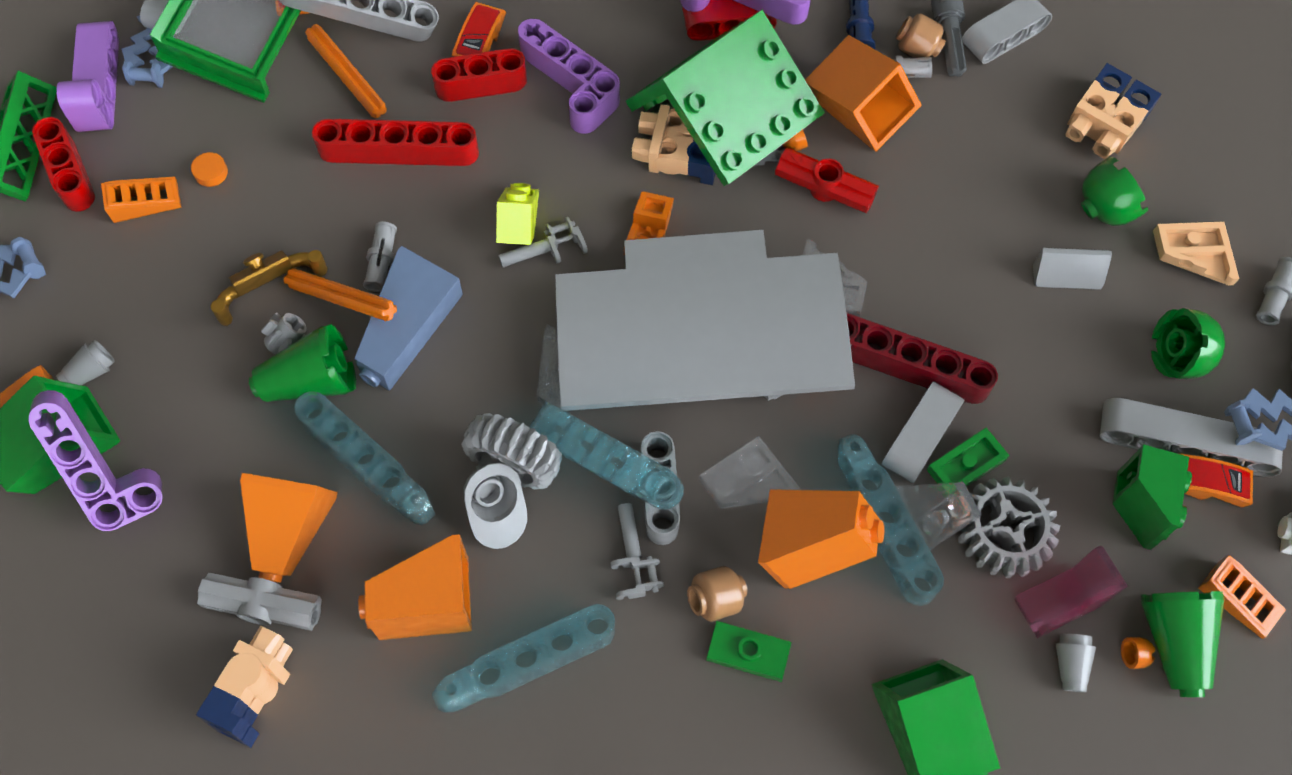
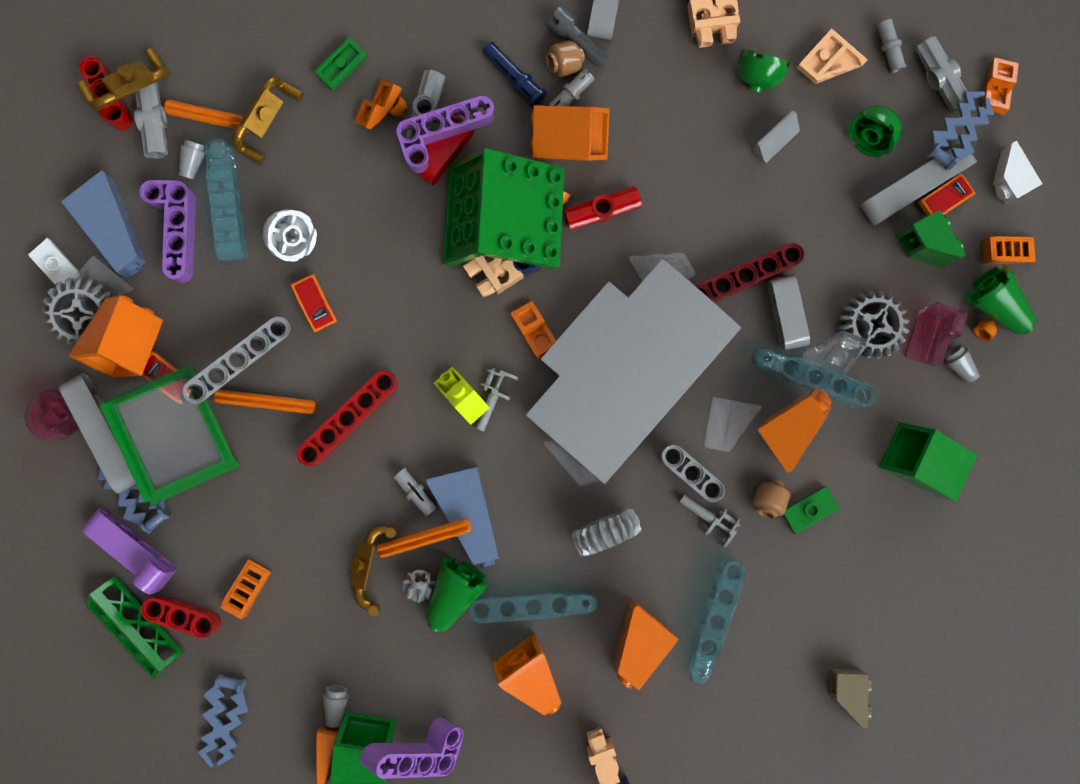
camera: 50 degrees left, 20 degrees up
(209, 169) = (261, 536): orange tile -> none
(259, 601) = (562, 723): light grey piece -> none
(479, 75) = (346, 317): red beam -> none
(495, 505) = (622, 565): piece -> none
(592, 84) = (389, 278): medium lavender beam -> none
(609, 458) = (654, 489): clear light blue piece -> none
(969, 460) = (824, 307): green plate -> none

